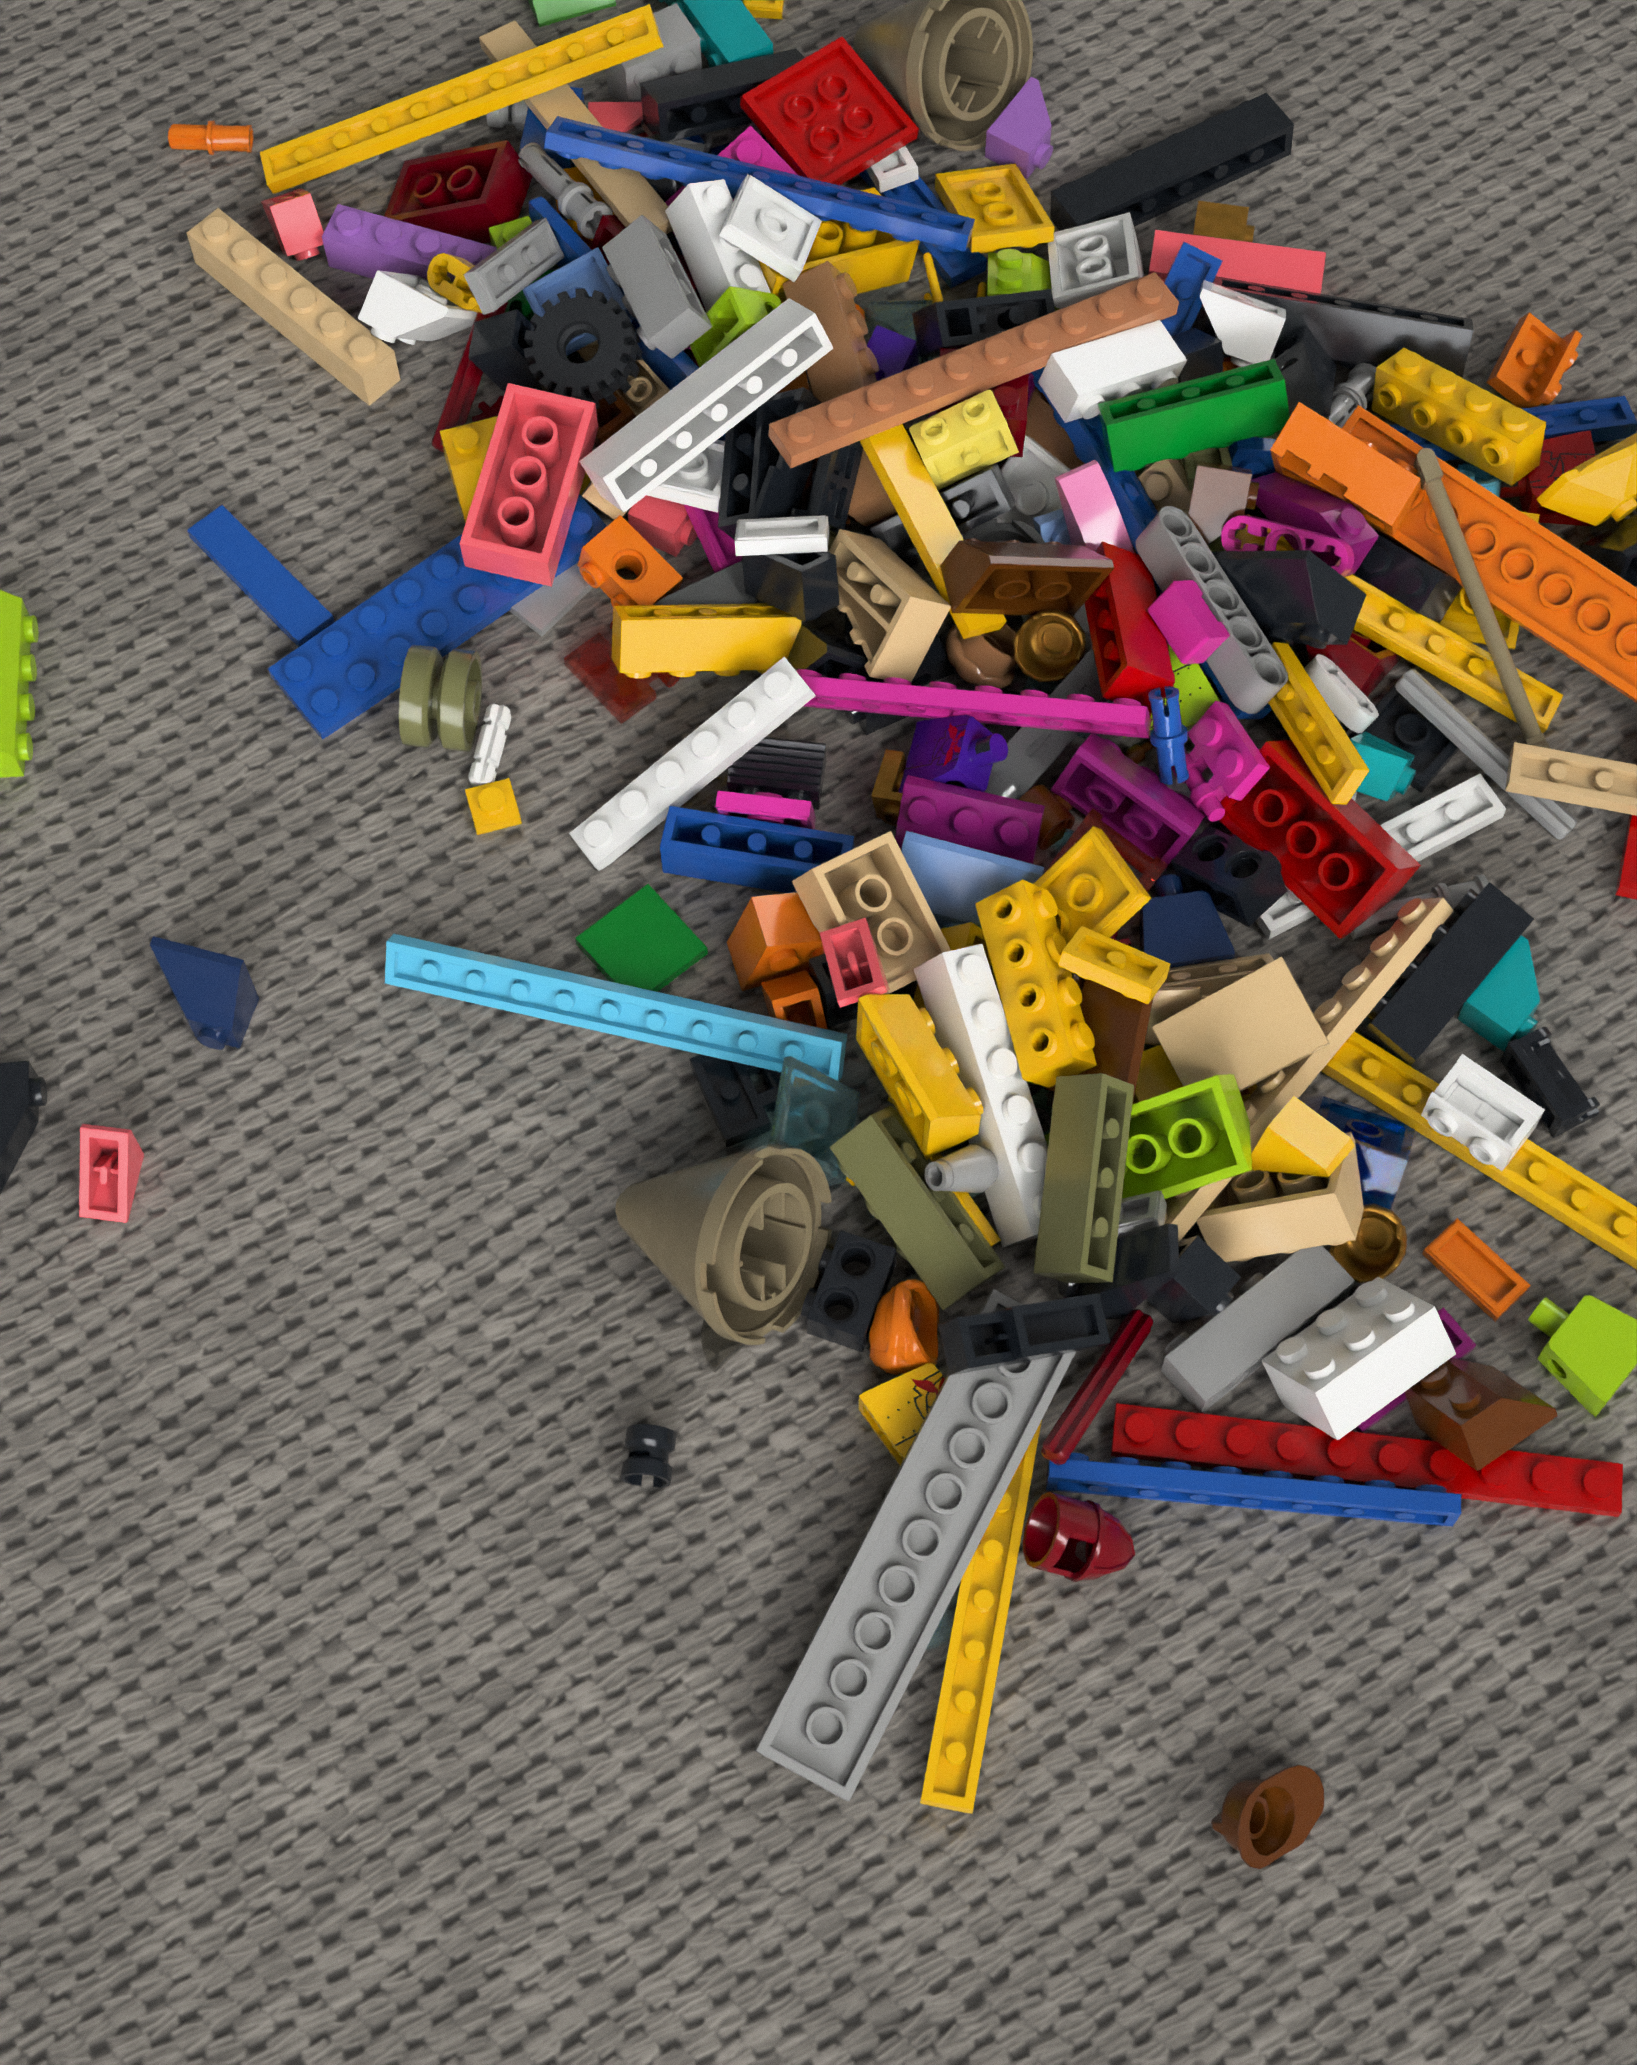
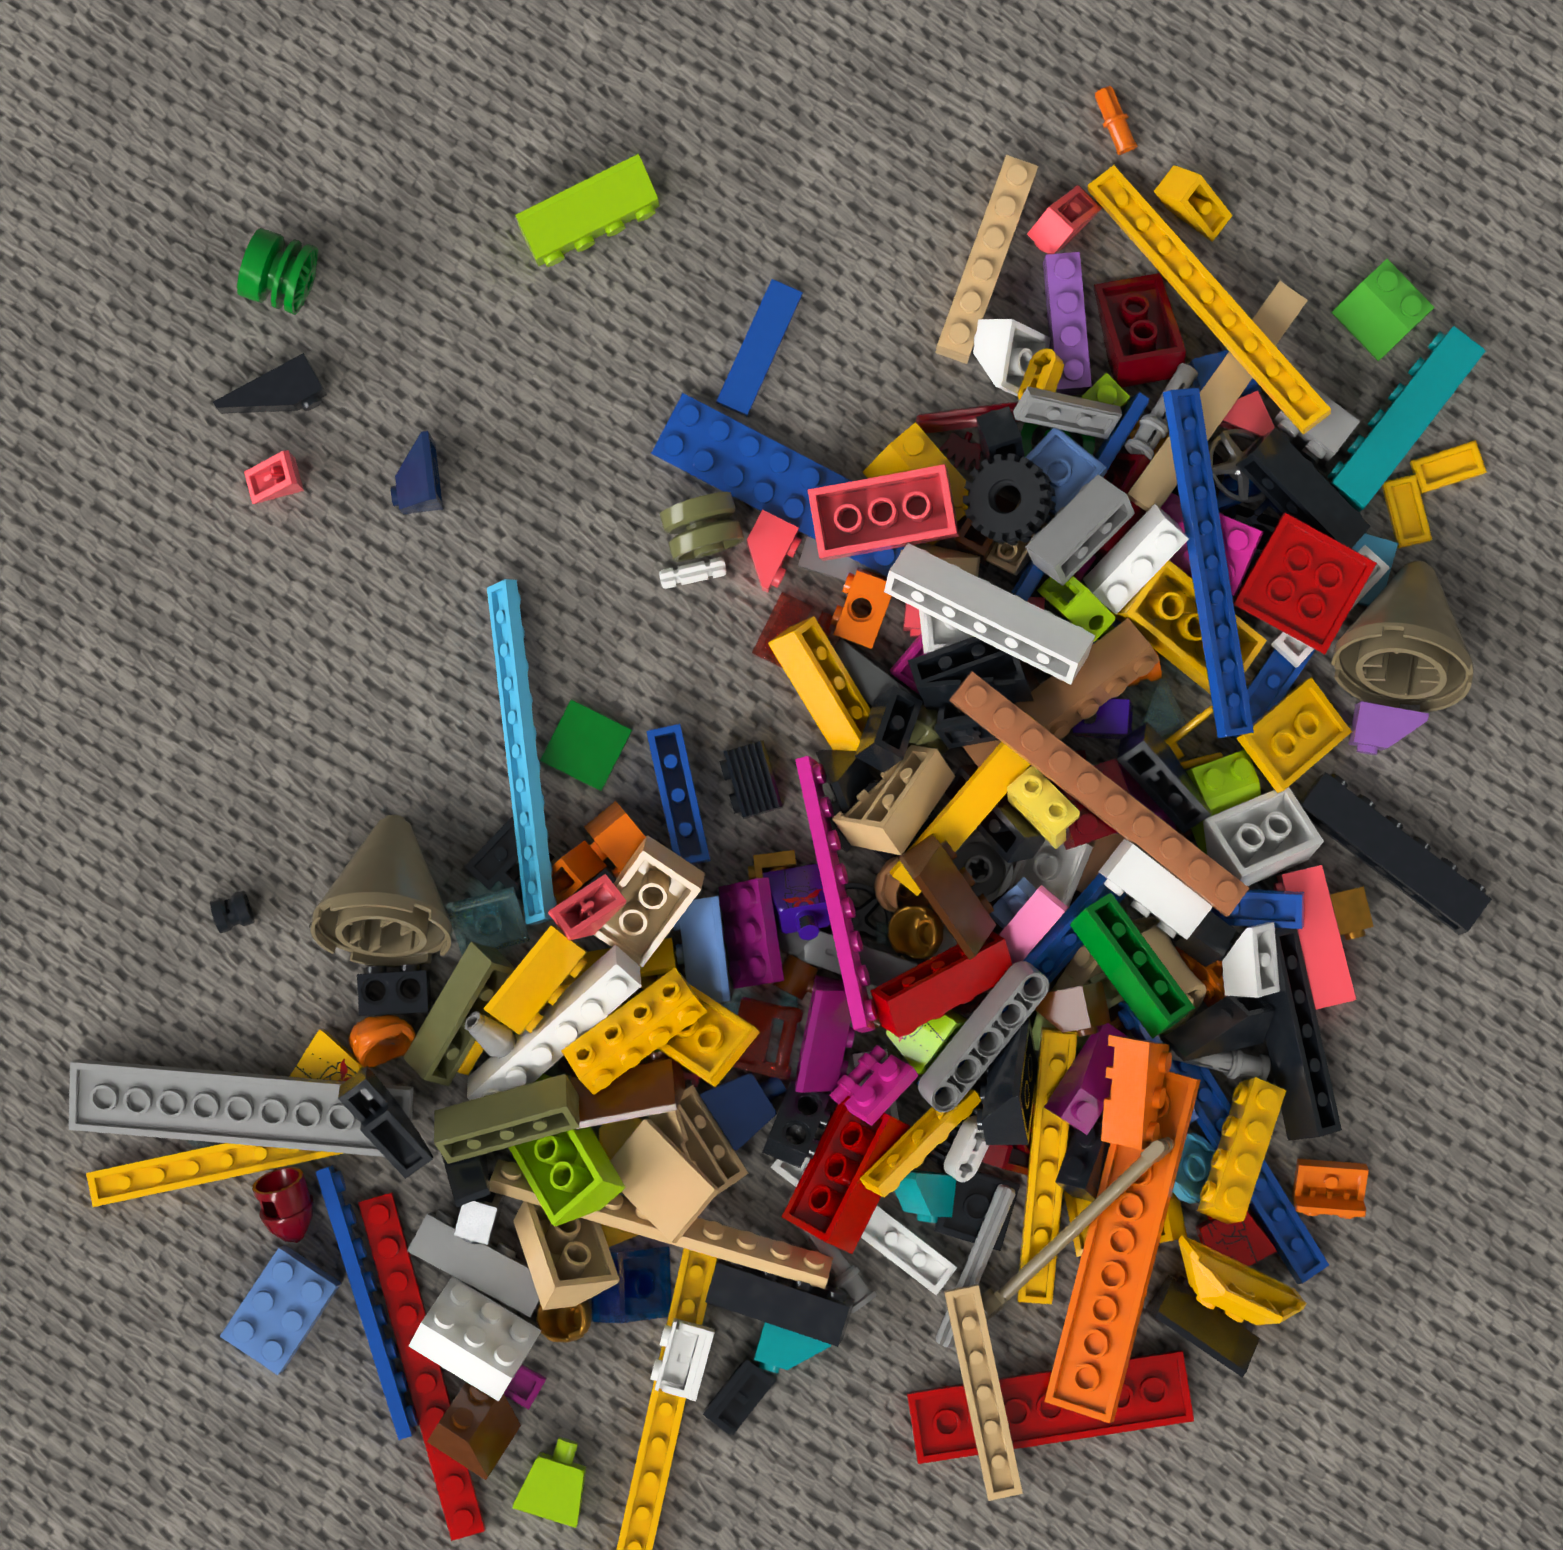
camera: 65 degrees right, 20 degrees up
(340, 92) = (1193, 201): none -> yellow slope
(493, 806) = (648, 596): yellow plate -> none
(507, 646) = (769, 546): none -> coral slope
(692, 764) = (723, 723): white plate -> none
(767, 808) = (709, 789): dark pink plate -> none
(770, 228) = (1162, 591): white tile -> none
(782, 535) = (908, 712): white tile -> none
(797, 32) = (1406, 511): none -> yellow tile
(1097, 1387) = (386, 1177): dark red axle -> none
(1114, 965) = (656, 1081): yellow plate -> none
(1141, 1213) = (503, 1165): light grey tile -> none
(1168, 735) = (867, 1046): blue pin -> none
(1187, 622) = (955, 1026): dark pink piece -> none
(1220, 1606) = (280, 1309): none -> medium blue brick
(1258, 527) = (1056, 1084): dark pink beam -> none
(1271, 1814) = (161, 1387): reddish brown piece -> none
(1301, 1143) = (594, 1251): yellow slope -> none
(1476, 1269) = (583, 1391): orange tile -> none

